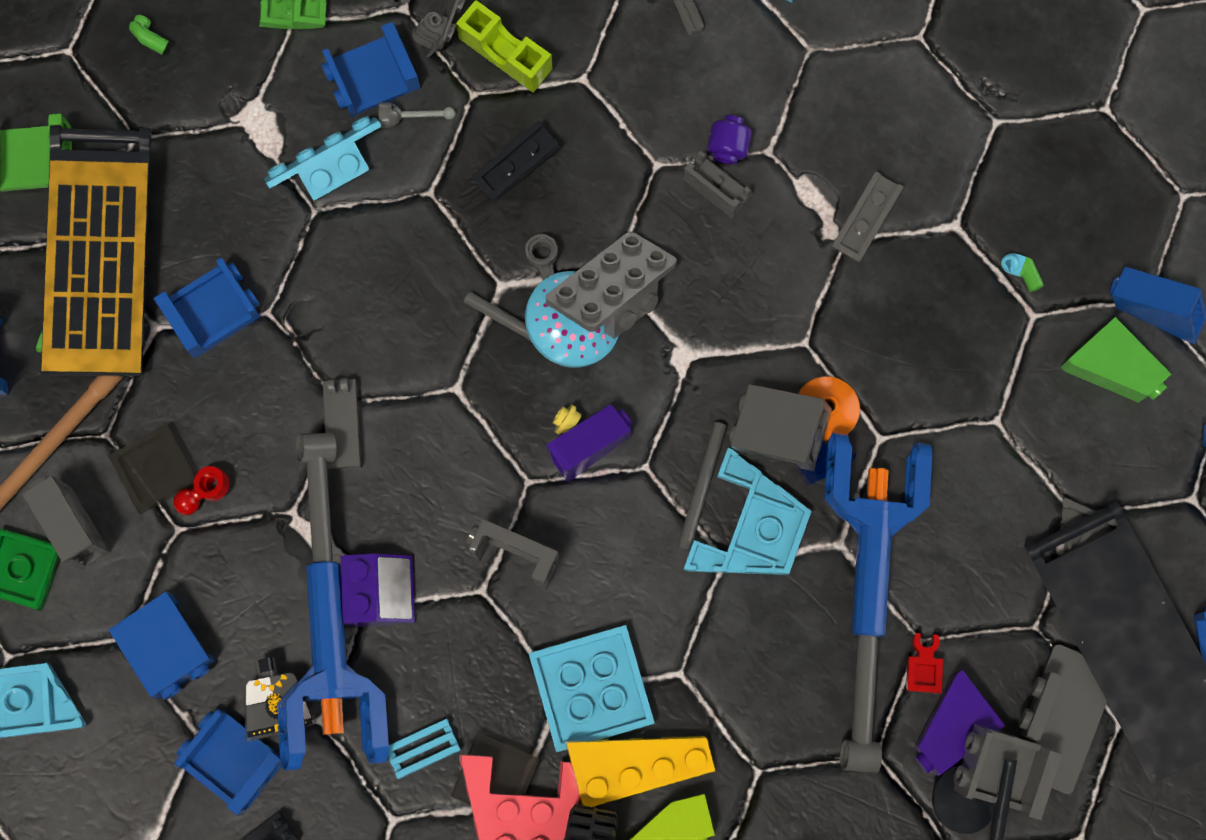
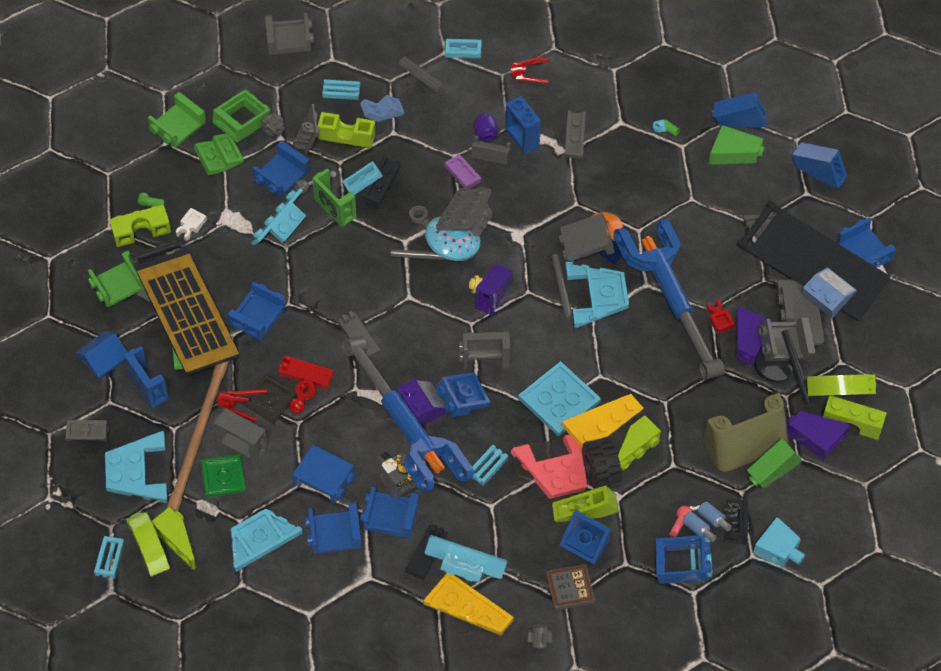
camera: 30 degrees left, 20 degrees down
(83, 65) = (153, 219): none -> lime arch
(88, 447) = (229, 400): none -> red plant
(131, 746) = (334, 530): none -> blue panel
(191, 101) = (191, 222): none -> white plate
(230, 449) = (302, 370): none -> red hinge
(425, 192) = (342, 209): none -> bright green panel
(443, 608) = (462, 394): none -> blue plate
(486, 150) = (362, 179): none -> medium azure tile
(588, 31) = (385, 109): none -> medium blue slope
(652, 204) = (462, 171): none -> medium lavender plate
(784, 172) = (522, 125): none -> blue window
(840, 53) = (518, 69): none -> red plant
(1128, 714) = (828, 292): none -> medium blue slope

